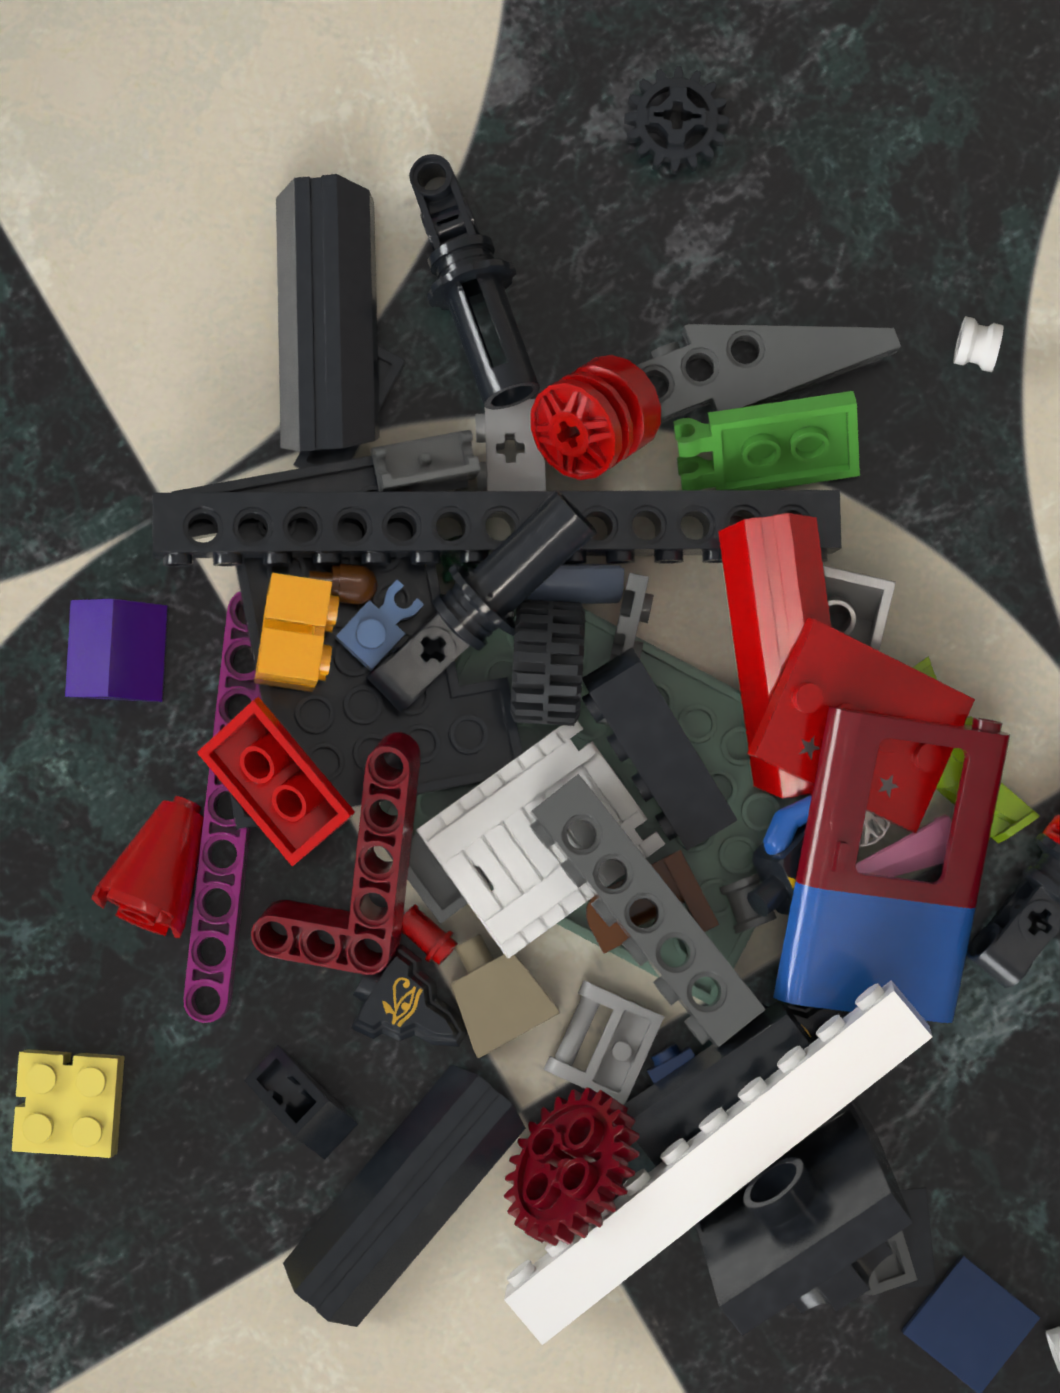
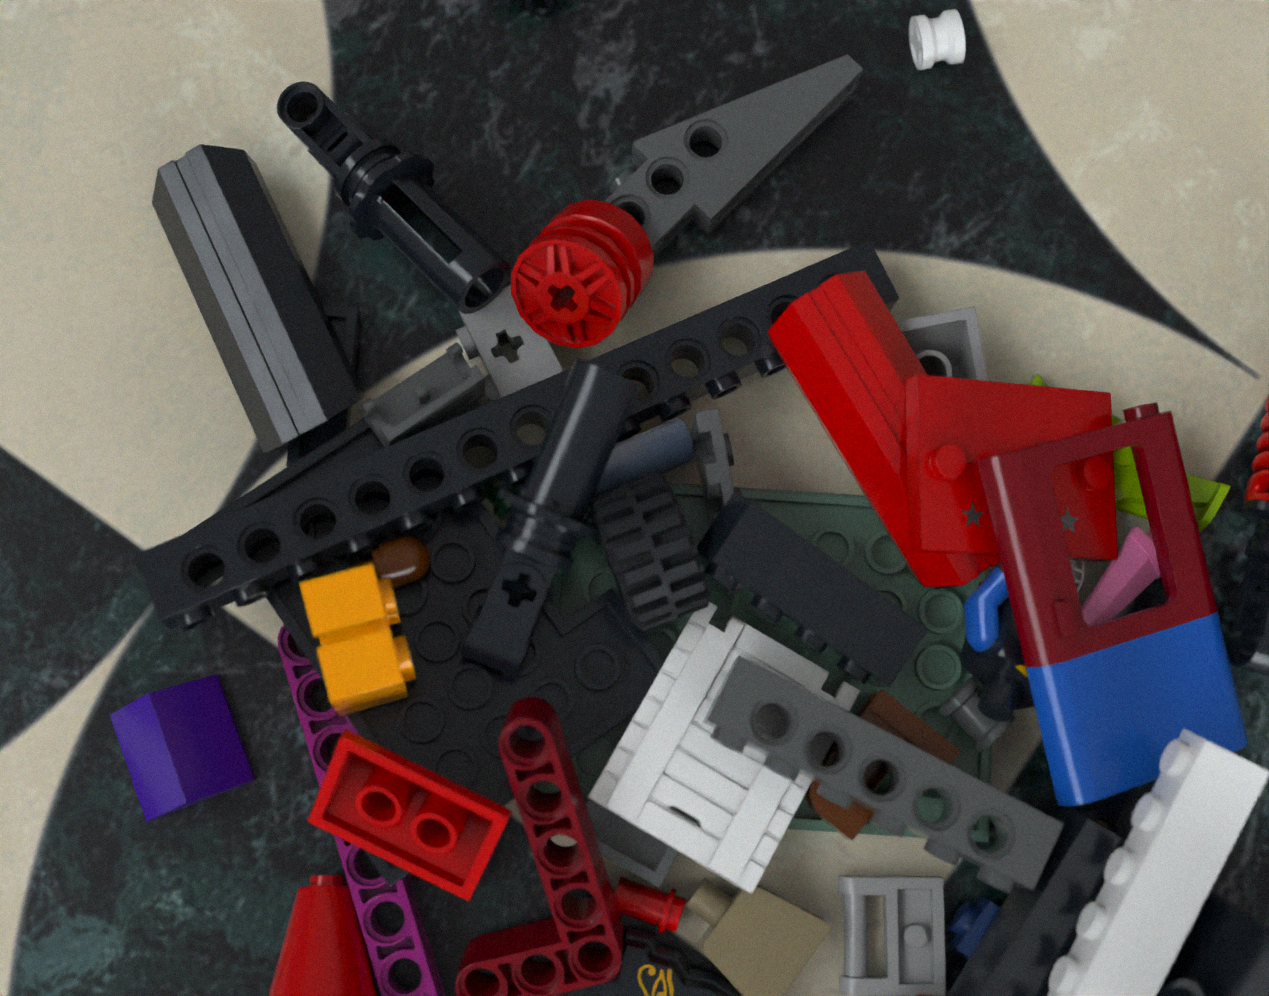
camera: 25 degrees left, 5 degrees down
(374, 630) = (448, 600): medium blue plate -> none
(771, 444) = (778, 223): bright green tile -> none

